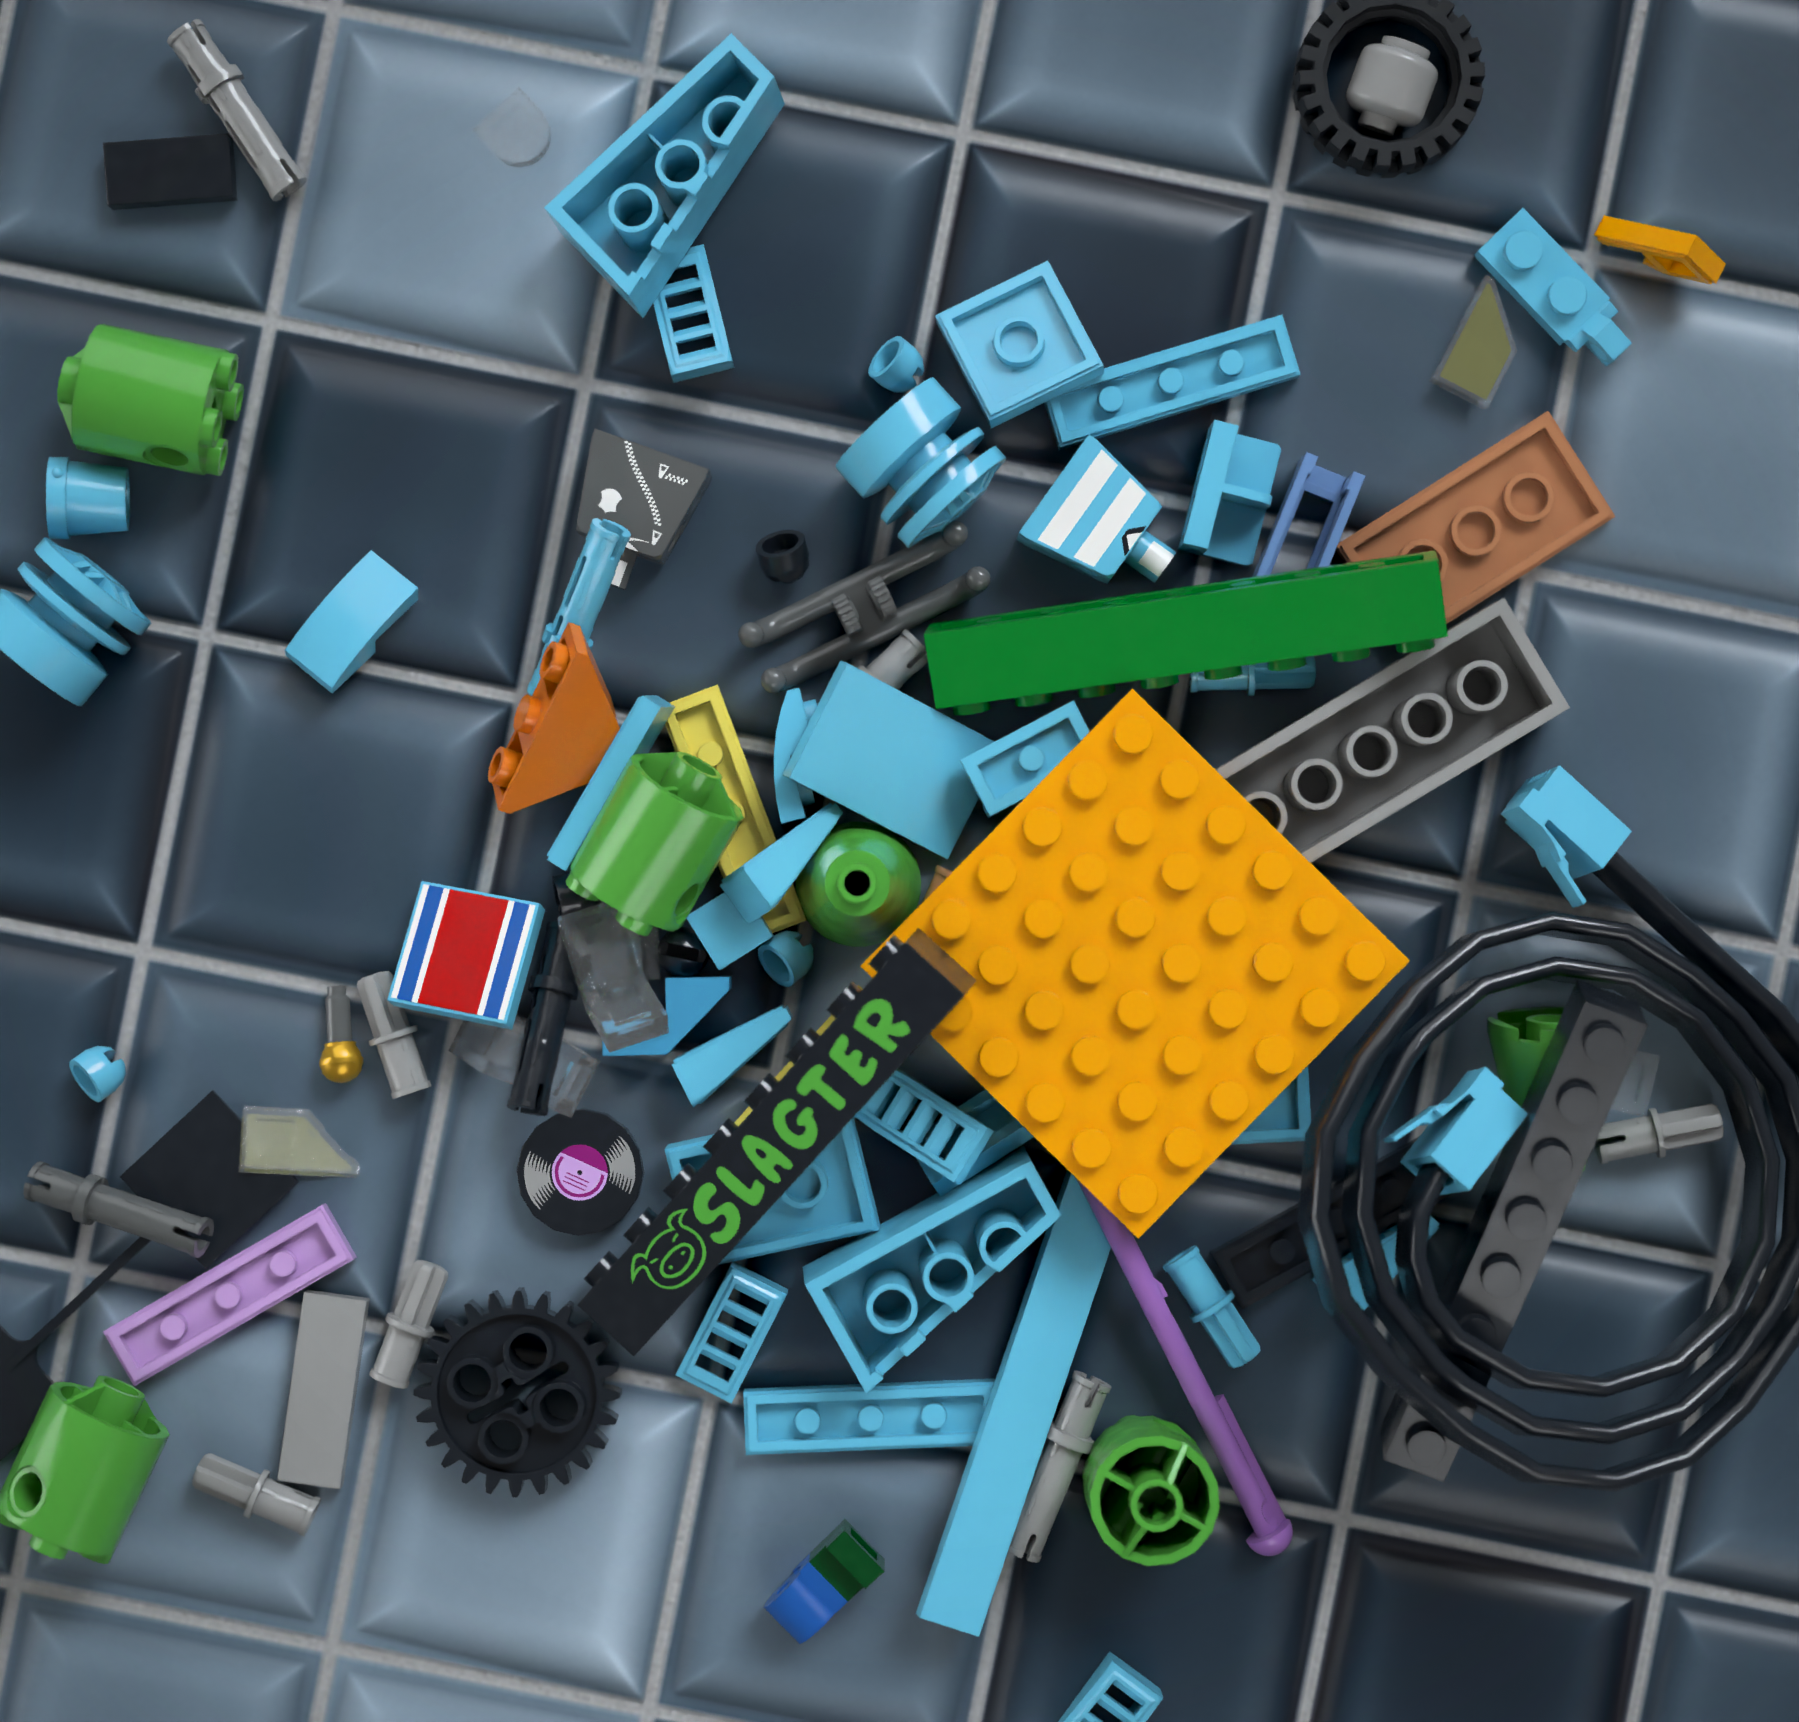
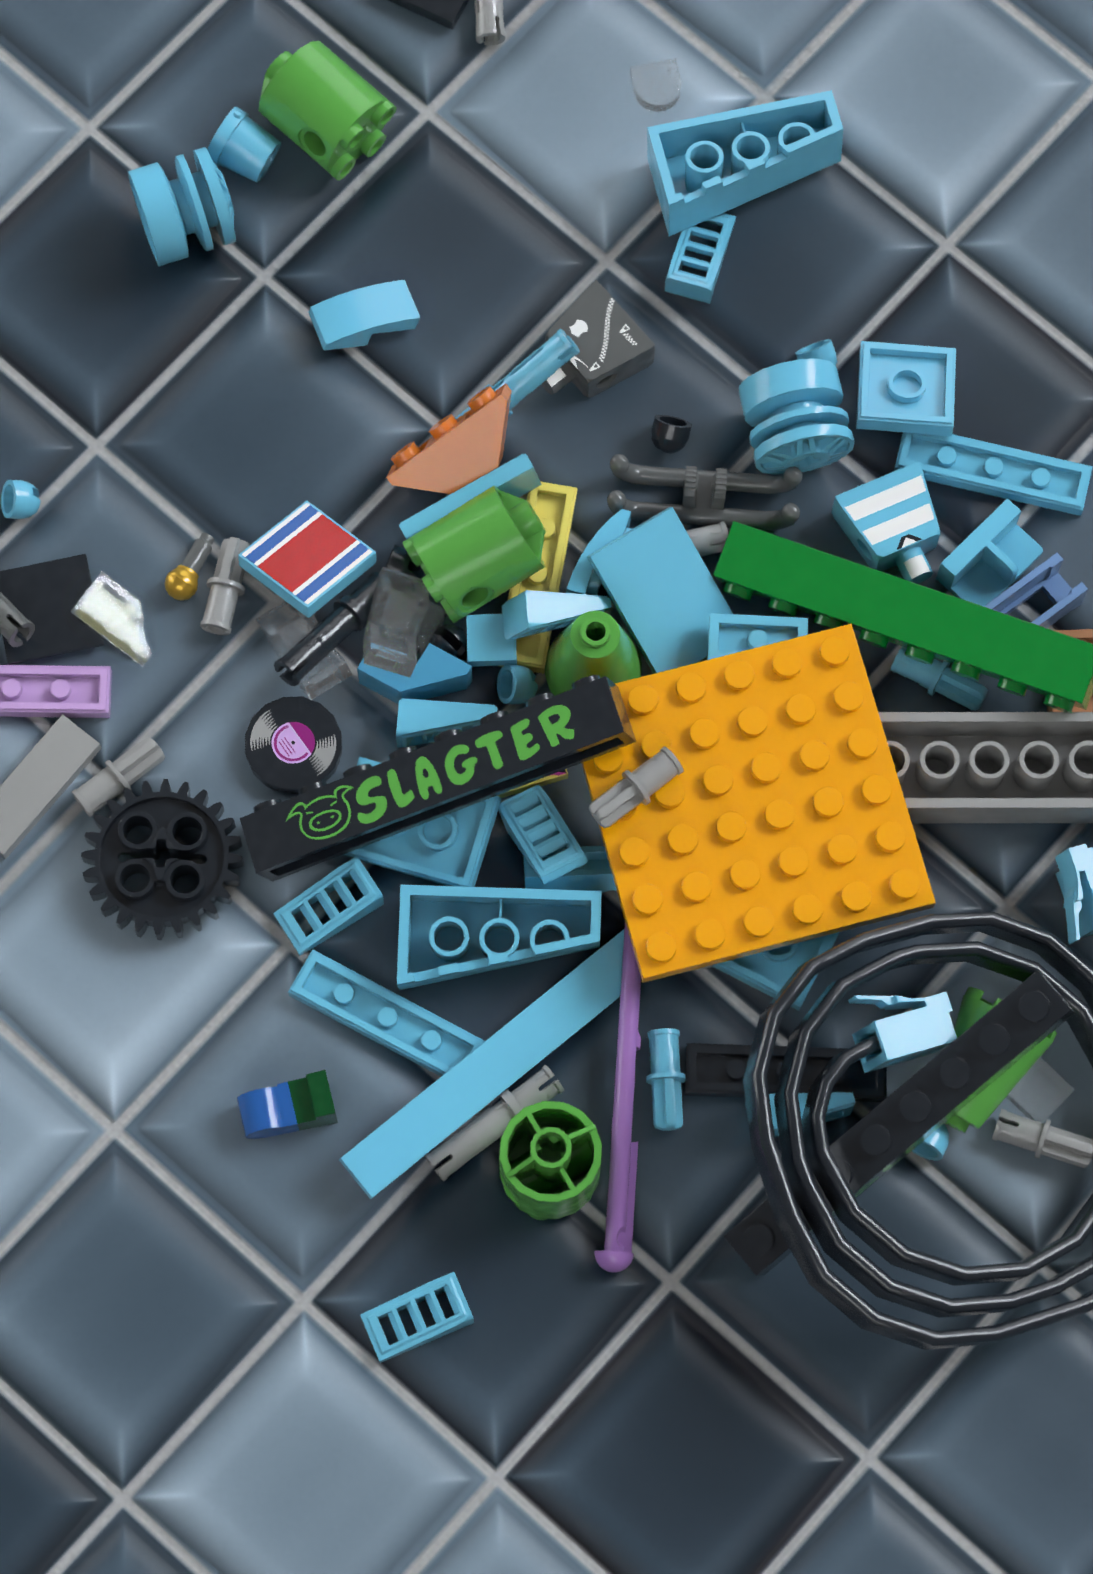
camera: 30 degrees right, 15 degrees down
(1007, 1037) = (635, 788): none -> light grey axle

